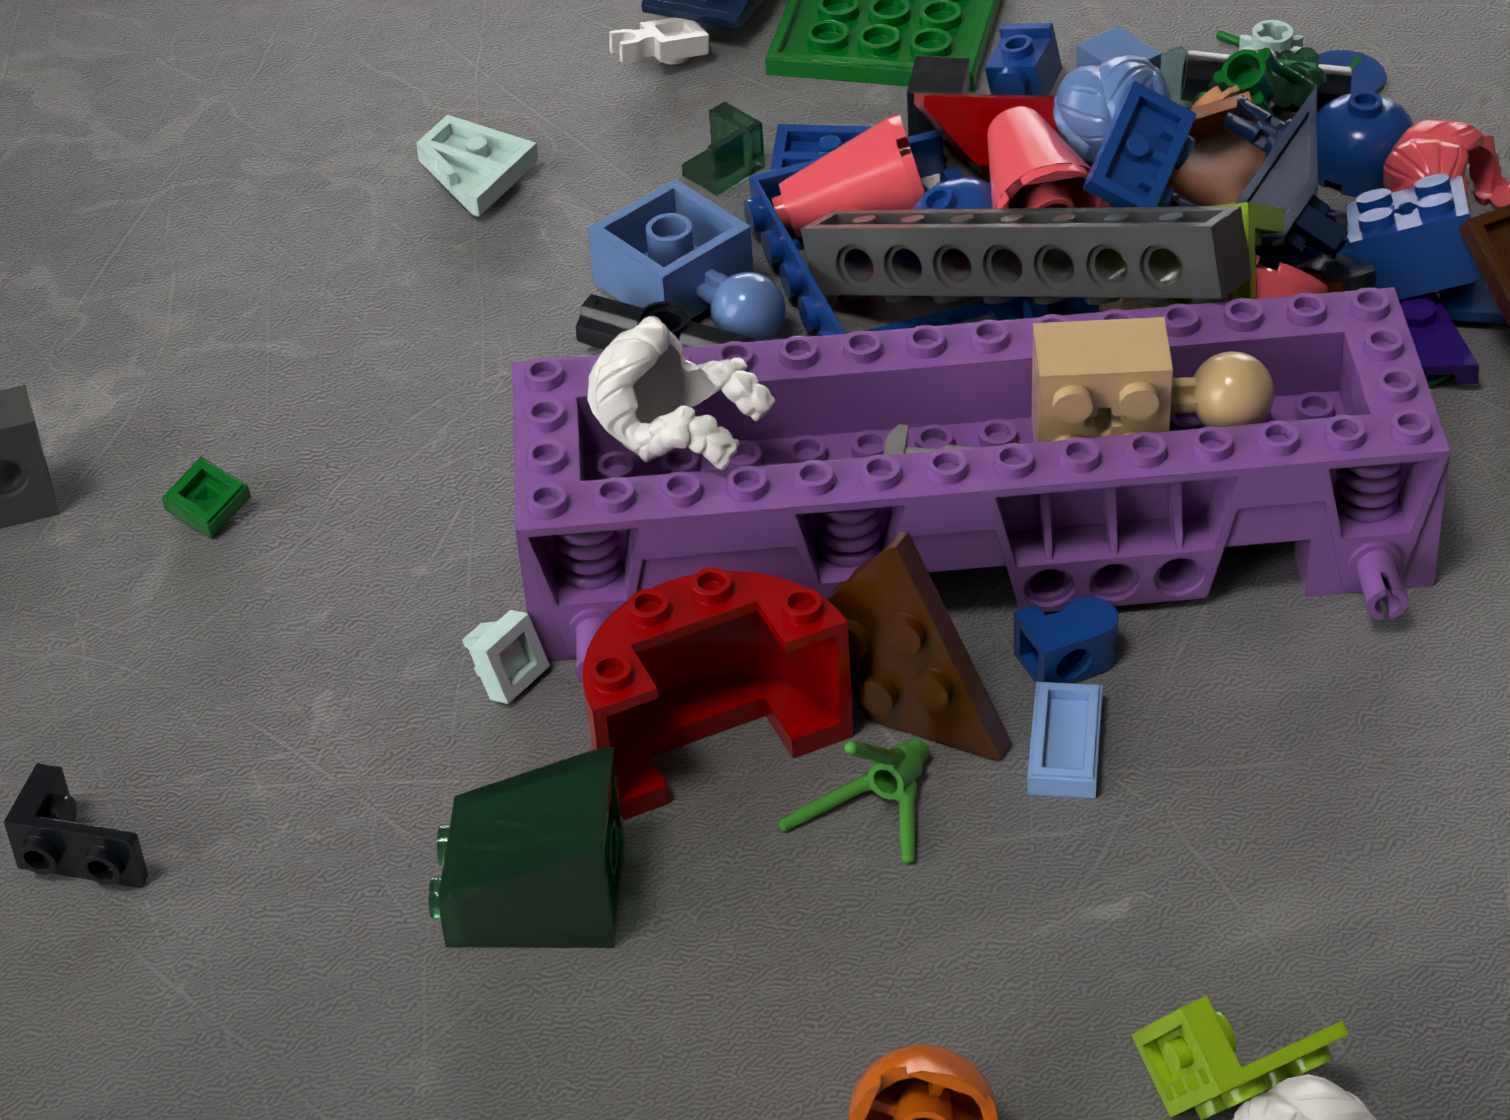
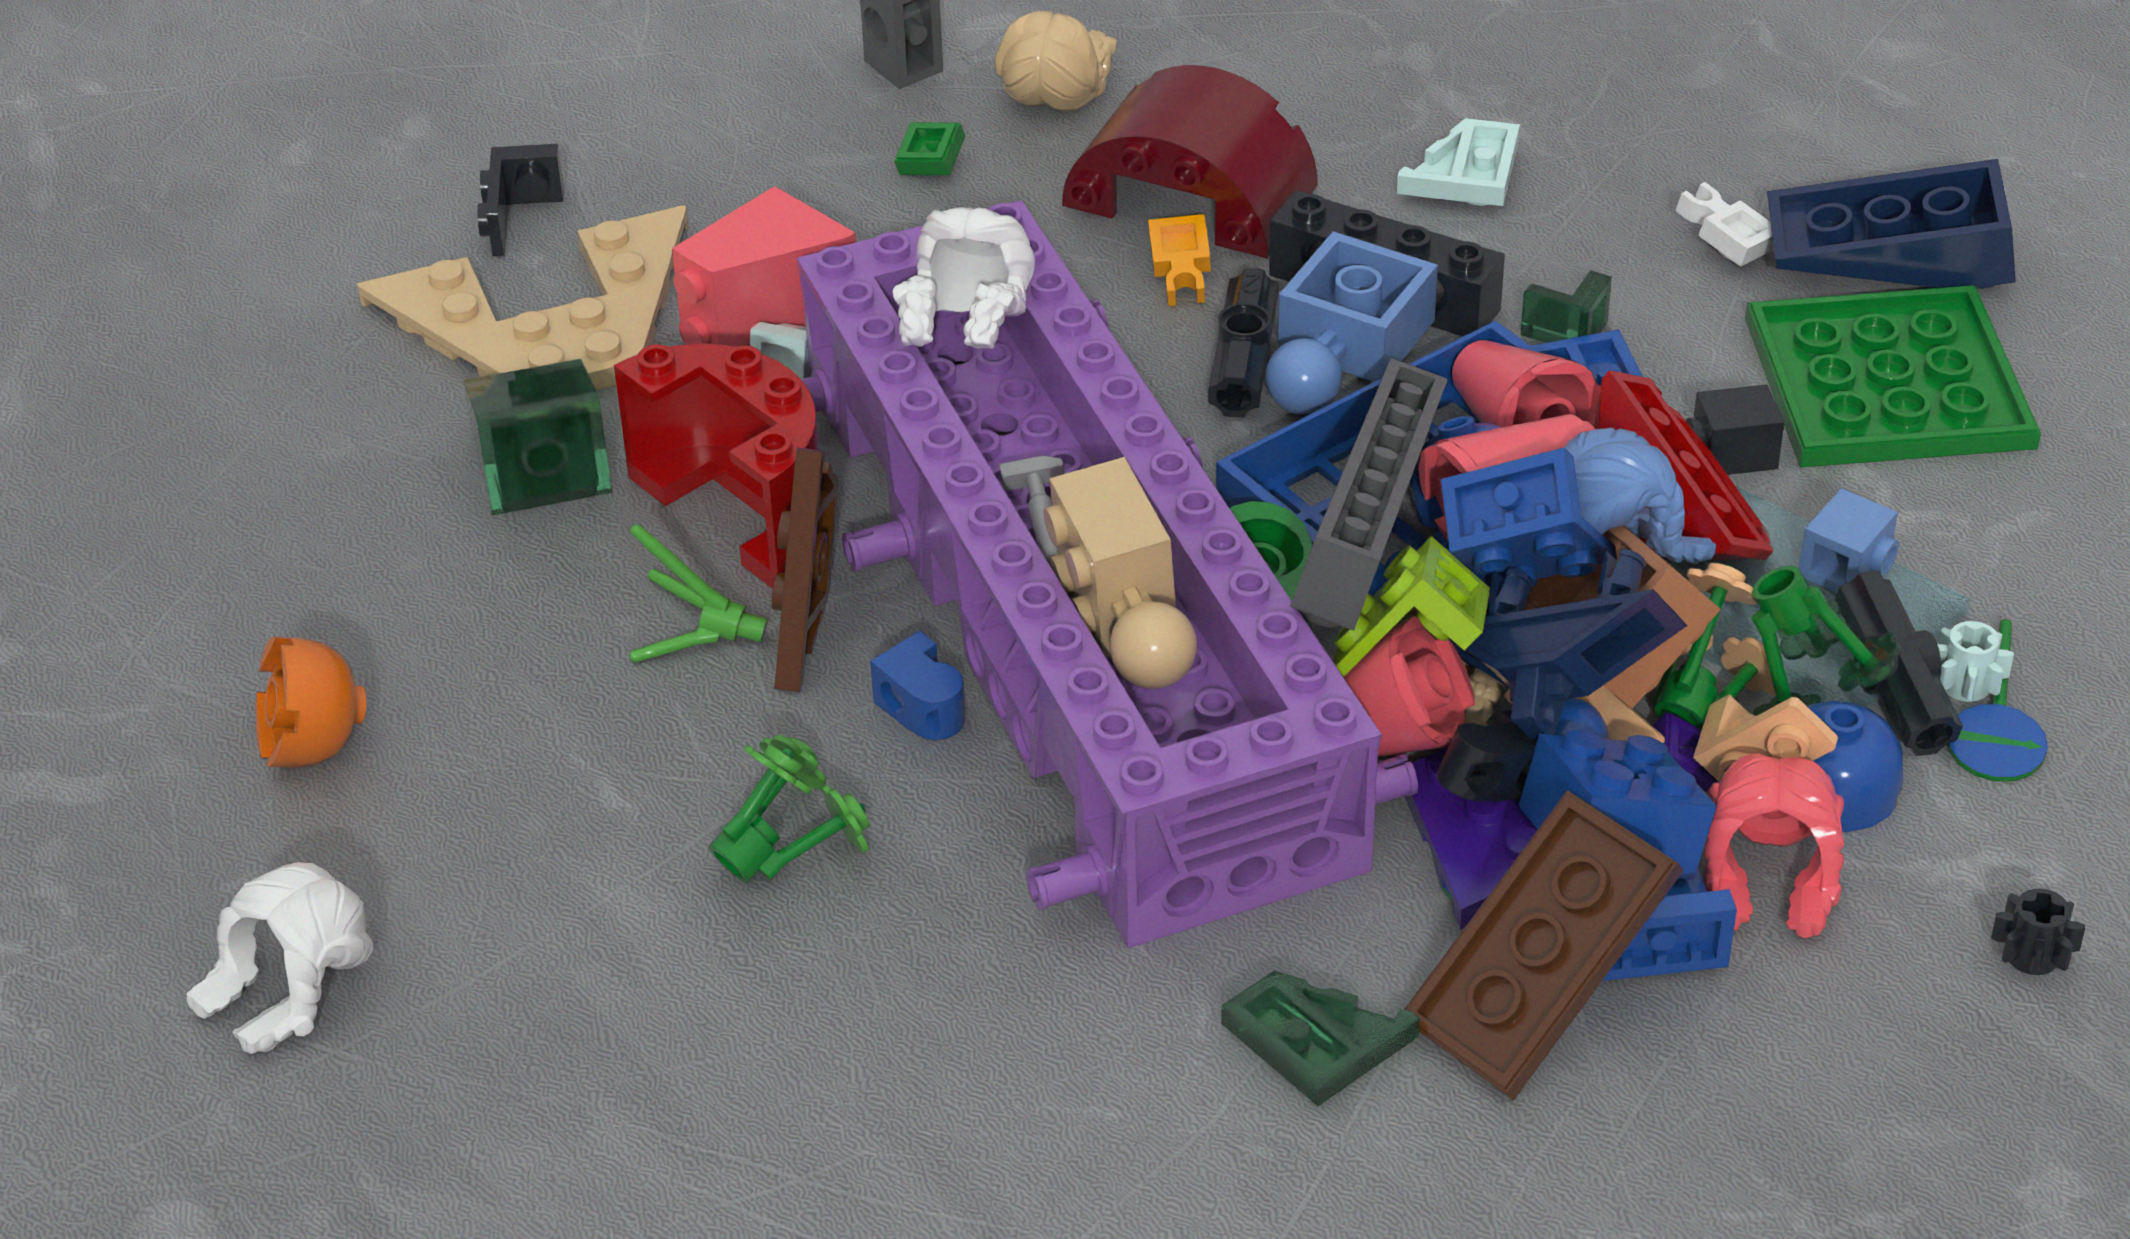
camera: 70 degrees right, 0 degrees up
(155, 373) = (1053, 61): none -> tan hair
(352, 300) = (1203, 137): none -> dark red cylinder
(361, 847) = (628, 262): none -> tan wing
(396, 627) = (748, 268): none -> coral slope
(487, 355) = (1180, 253): none -> light orange plate
(550, 260) = (1466, 275): none -> black brick
(1024, 60) = (1820, 469): blue brick -> none
(1065, 740) = (817, 717): light blue tile -> none
(1197, 1066) = (376, 841): lime bracket -> none
(1250, 791) = (748, 840): none -> plant
(1363, 171) = (1778, 733): none -> light nougat bracket

